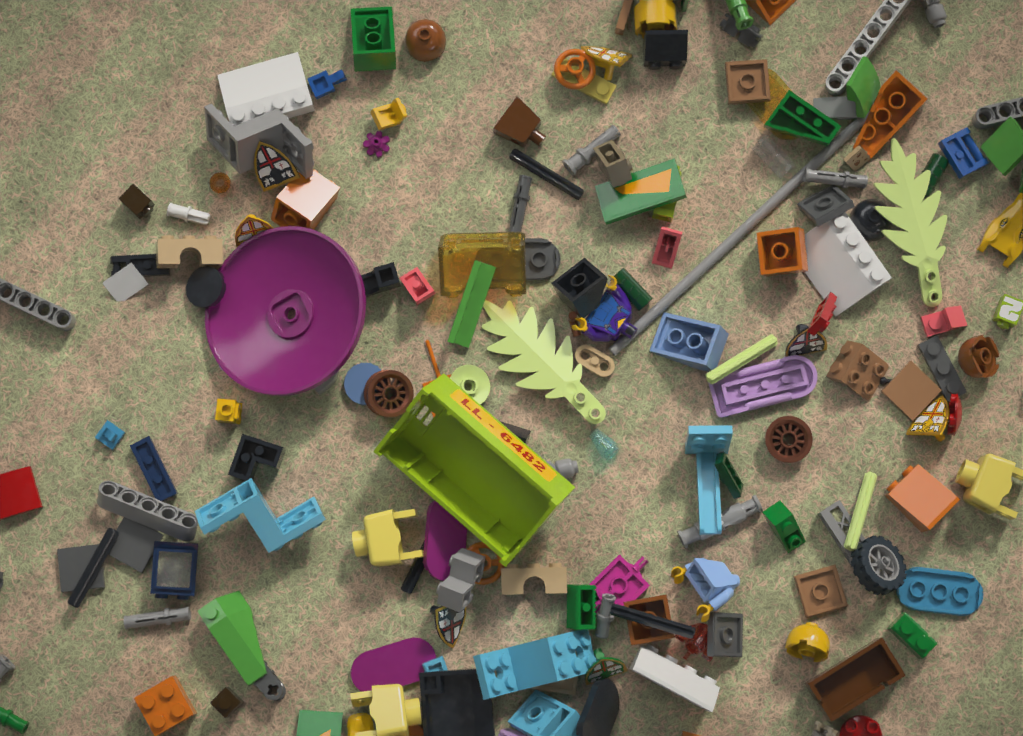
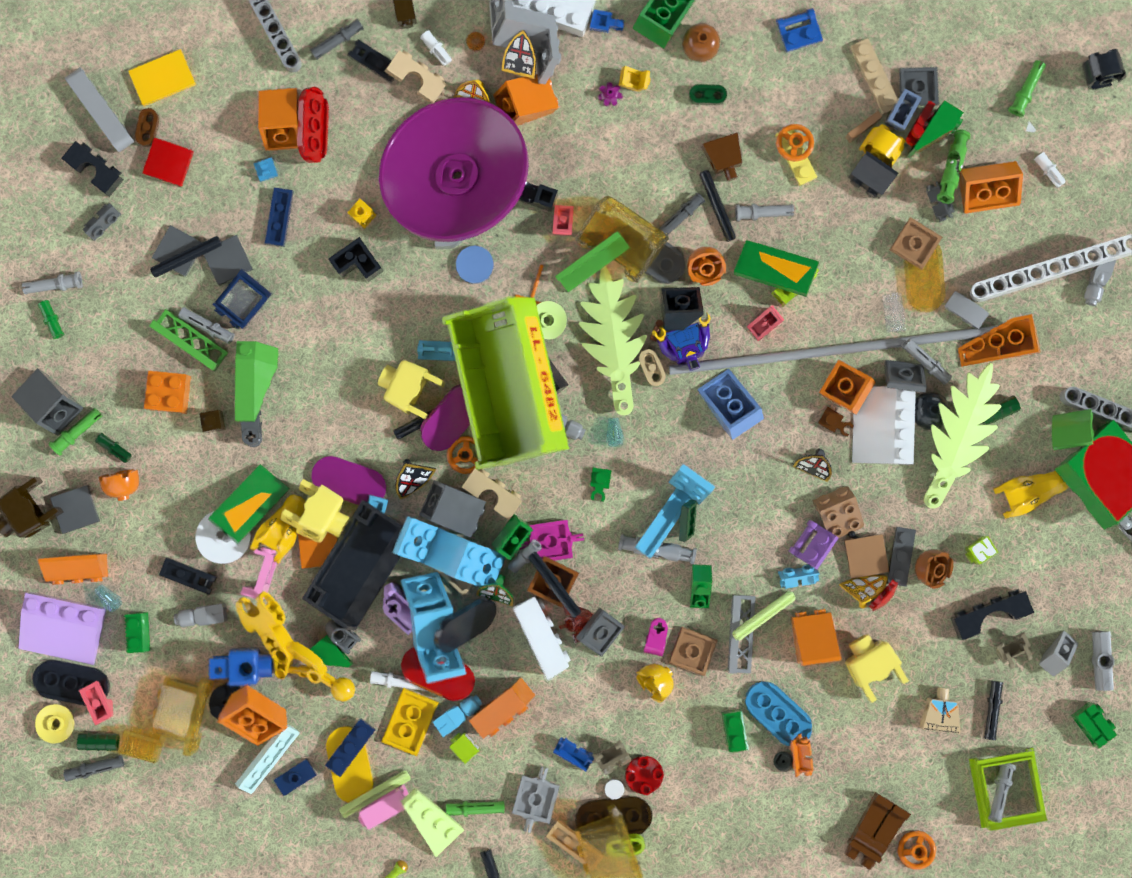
camera: 35 degrees right, 5 degrees up
(91, 269) = (337, 38): none -> dark grey pin
(91, 379) = (278, 118): none -> orange slope
(125, 283) = (354, 66): white sticker -> none
(125, 363) = (312, 125): none -> red tile
(147, 511) = (253, 243): light grey beam -> none
(150, 651) = (197, 354): none -> bright green fence
(205, 287) = (410, 111): black tile -> none
(271, 530) = (329, 305): medium azure bracket -> none
(369, 395) = (485, 266): copper wheel -> none
(387, 487) = (435, 350): none -> medium azure hinge
(456, 589) = (447, 451): light grey brick -> none
(463, 80) = (707, 92): none -> dark green plate
(507, 620) = (452, 508): none -> dark grey slope
(576, 234) = (706, 266): none -> orange cylinder
(607, 58) = (824, 151): shield -> none
(613, 163) = (771, 233): dark tan brick -> none
(622, 497) = (600, 479): none -> green plate
(634, 291) = (717, 340): dark green axle -> none
(710, 580) = (618, 587): light blue torso -> none
(741, 359) = (759, 443): yellowish green axle -> none
(764, 385) = (761, 473): lavender piece -> none
(781, 605) = (656, 640): none -> dark pink piece
(791, 291) = (833, 420): none -> reddish brown plate
(802, 120) = (934, 301): green wedge -> none
(805, 433) = (761, 538): copper wheel -> none
(823, 314) = (842, 454): red plate -> none
(855, 679) = (670, 731): reddish brown piece -> none
(857, 158) = (954, 358): tan slope -> none
(863, 87) = (998, 309): bright green slope -> none
(863, 414) = (818, 547): none -> medium lavender plate
(870, 445) = (790, 576): none -> medium azure hinge
(885, 560) = (756, 663): black wheel -> none
(943, 321) = (928, 523): coral slope -> none
(959, 155) = (1031, 410): blue plate -> none
(976, 631) = (783, 761): none -> pearl dark grey tile
(993, 621) = (800, 747): none -> orange hinge

